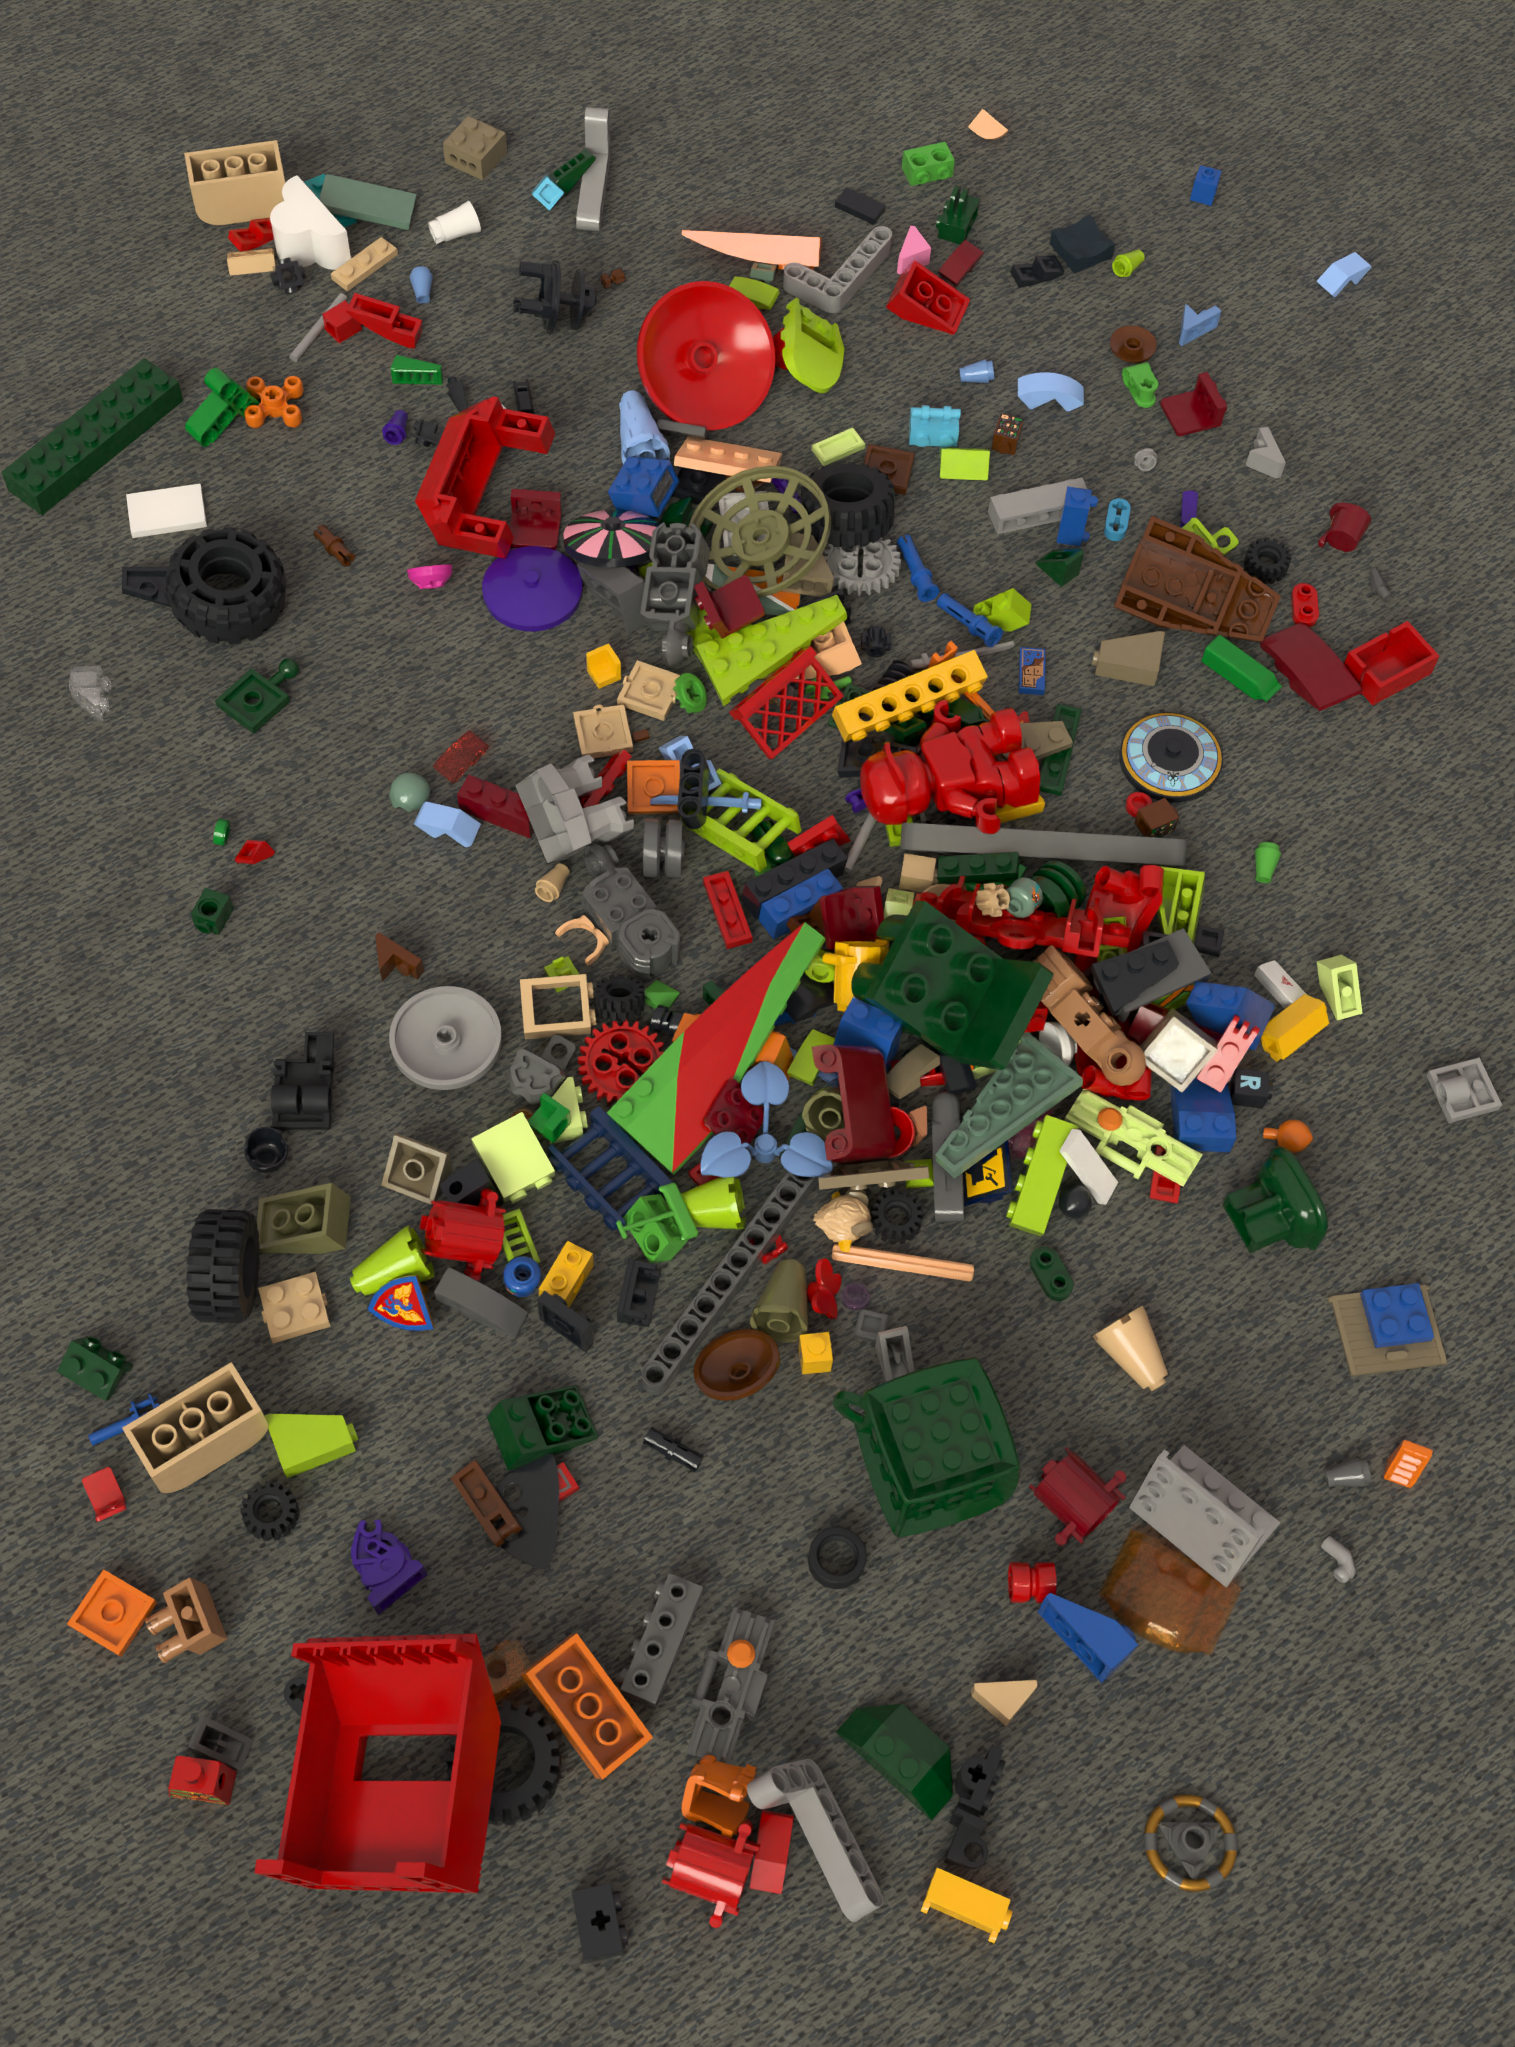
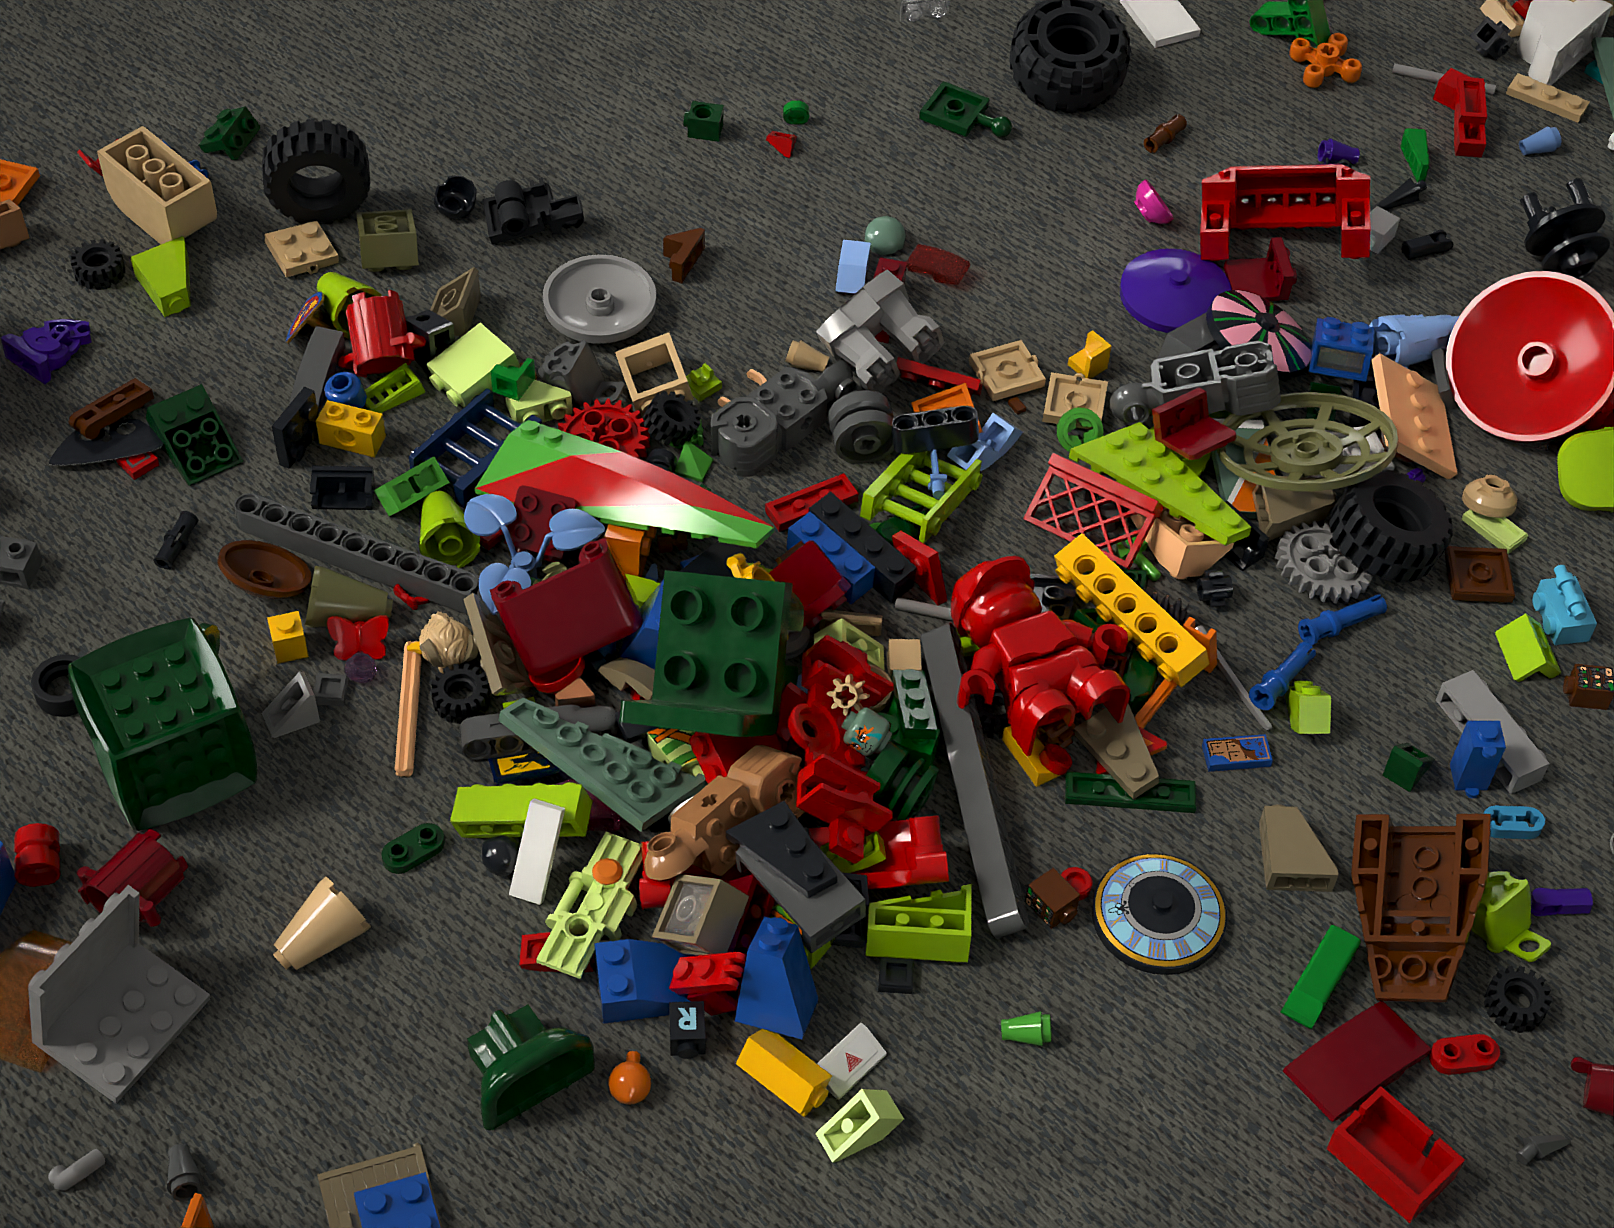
camera: 80 degrees right, 10 degrees down
(678, 1211) = (425, 492): bright green piece -> none
(815, 443) = (1490, 497): none -> tan piece

